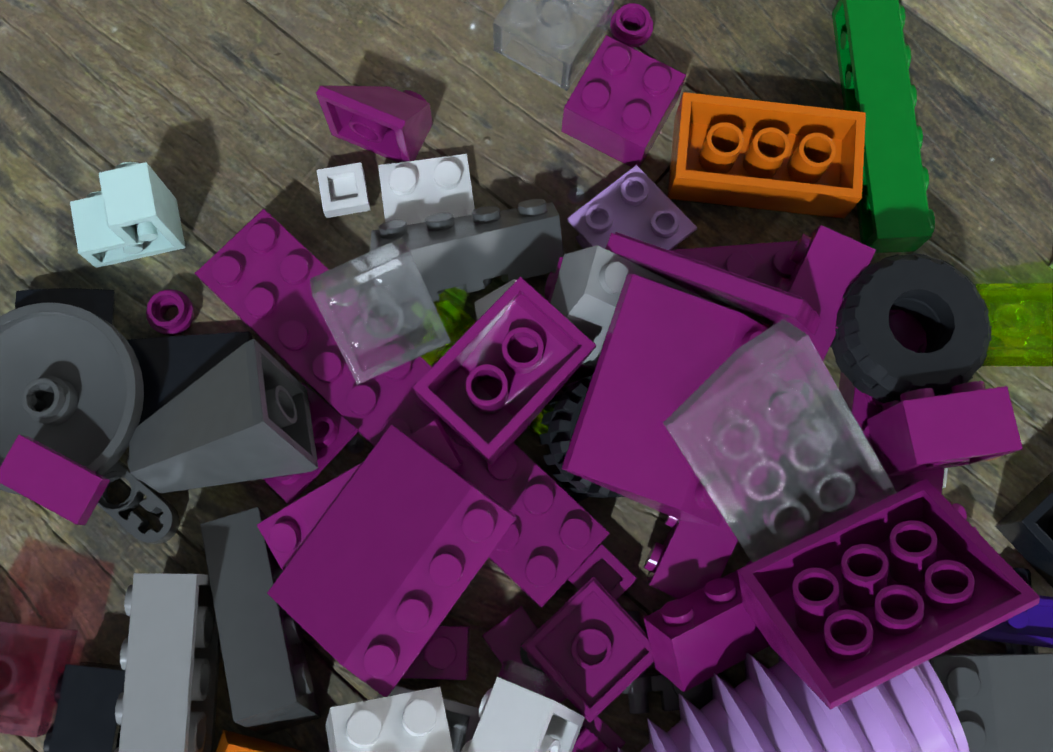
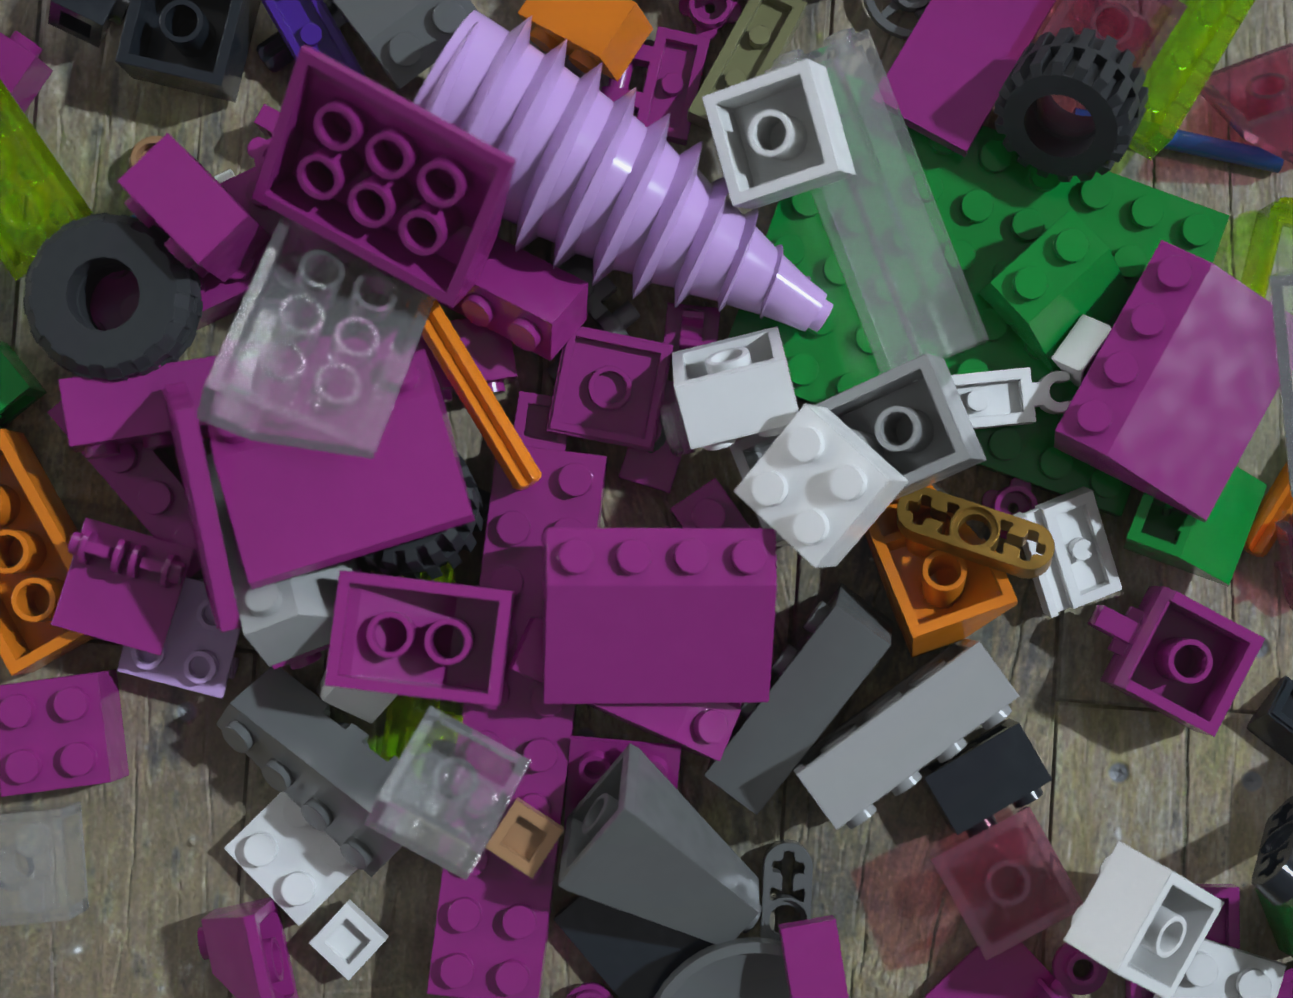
camera: 120 degrees left, 10 degrees up
(309, 345) = (524, 837): none -> medium nougat plate
(651, 542) = (479, 400): none -> orange axle
(693, 199) = (122, 586): none -> magenta hinge

